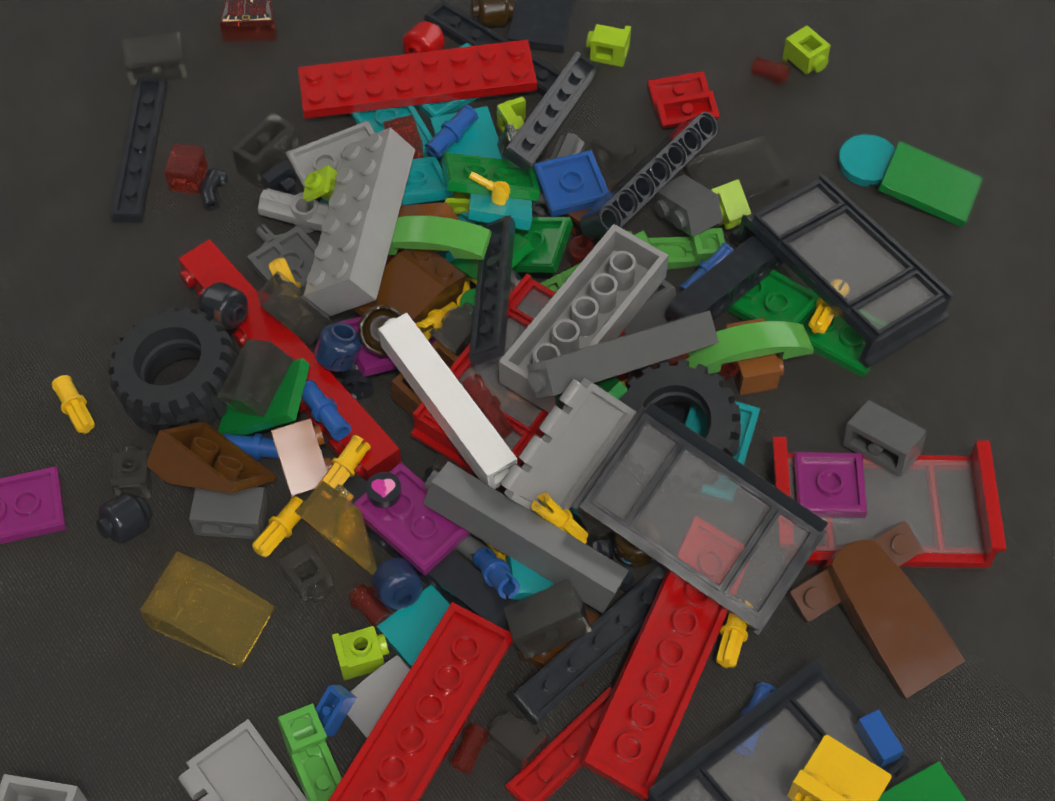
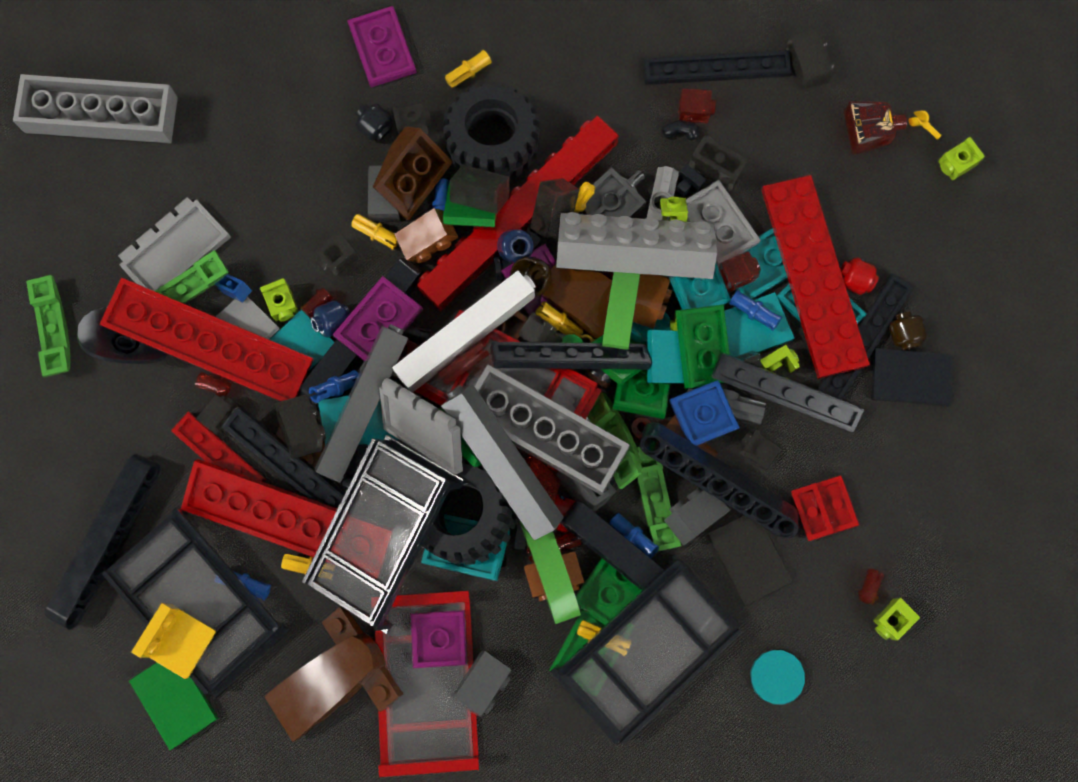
camera: 85 degrees right, 20 degrees up
(206, 610) = (306, 192): clear yellow slope -> none
(224, 304) = (546, 155): black head -> none
(325, 411) = (460, 245): blue pin -> none
(340, 522) = (359, 267): clear yellow slope -> none
(346, 462) = (415, 266): yellow axle -> none
(383, 489) = (392, 296): black tile -> none
(499, 189) = (680, 349): yellow hand -> none
(559, 517) = (378, 426): yellow axle -> none
(609, 44) = (879, 438): lime brick -> none
(732, 203) = (705, 548): lime brick -> none
(879, 738) = (214, 670): blue piece -> none
(930, 184) = (753, 732): green tile -> none

